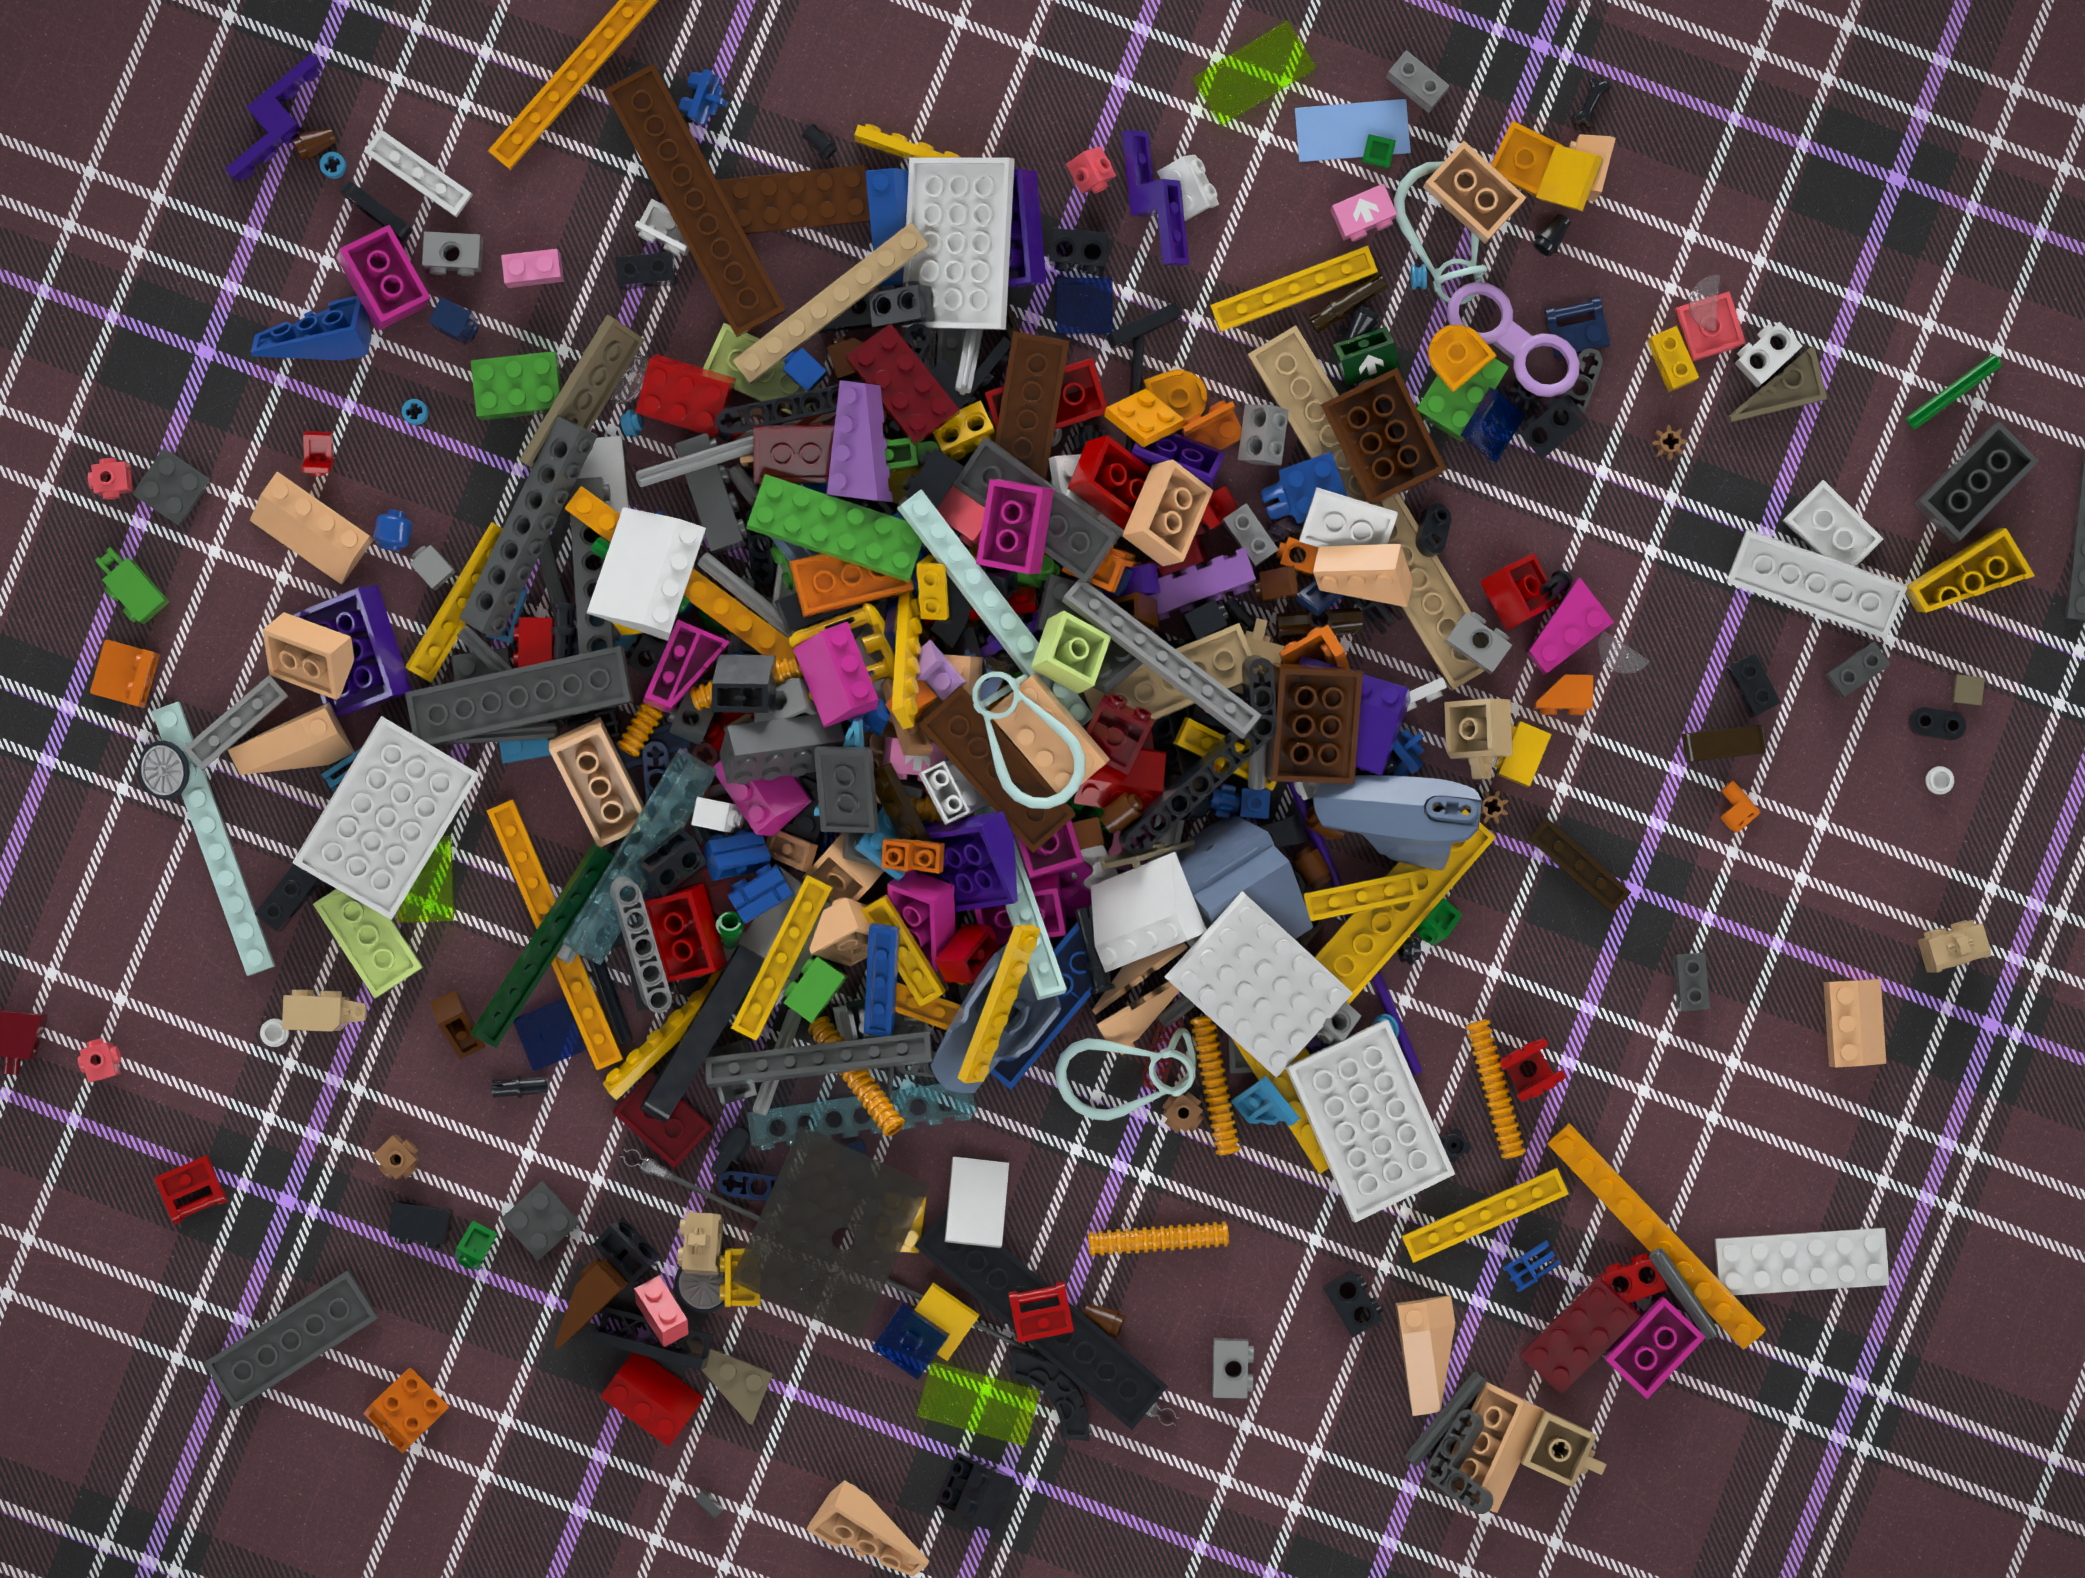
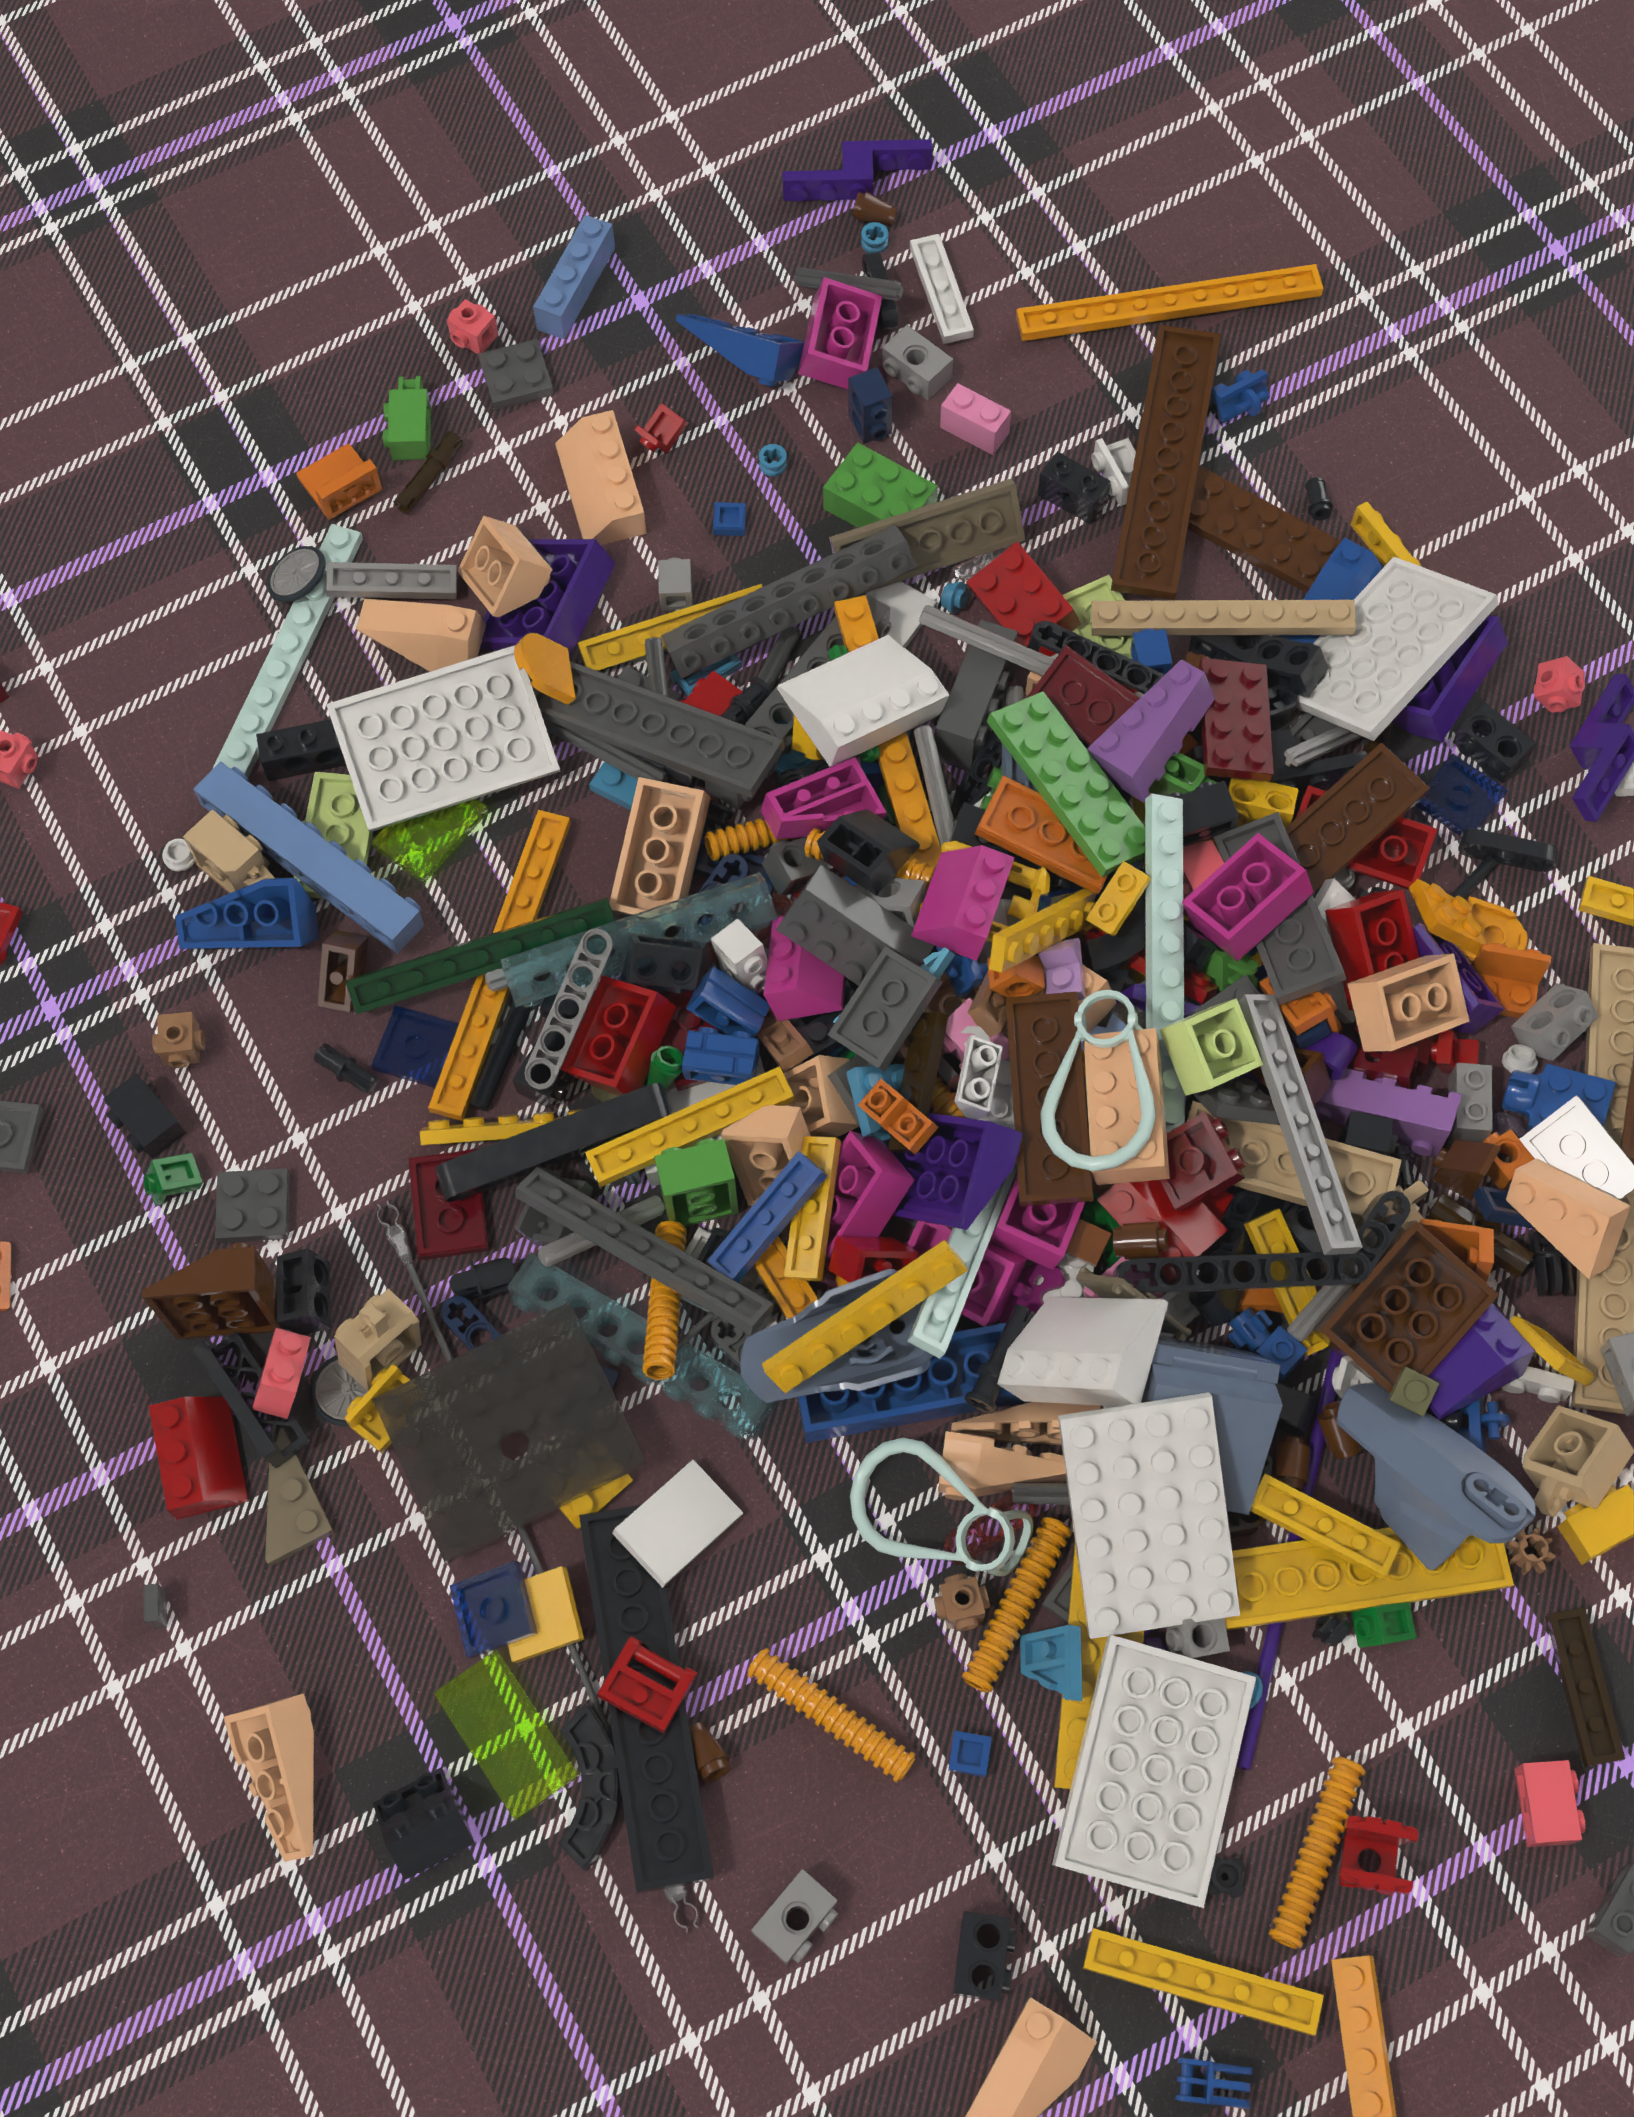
camera: 45 degrees right, 20 degrees down
(147, 376) = (574, 277): none -> medium blue brick
(182, 613) = (436, 462): none -> dark brown pin
(352, 228) = (886, 288): none -> dark grey axle
(368, 969) = (312, 858): none -> medium blue brick
(370, 1042) = (258, 915): none -> blue wedge
(392, 530) = (667, 531): blue head -> none
(412, 714) = (547, 666): none -> light orange tile
(423, 482) = (729, 519): none -> blue tile
(1256, 1195) = (969, 1754): none -> blue plate
(1259, 477) = (1520, 1058): none -> white plate
(1354, 773) = (1413, 1391): none -> olive plate
(1417, 672) = (1552, 1351): none -> yellow tile
(1606, 953) = (1549, 1803): none -> coral brick

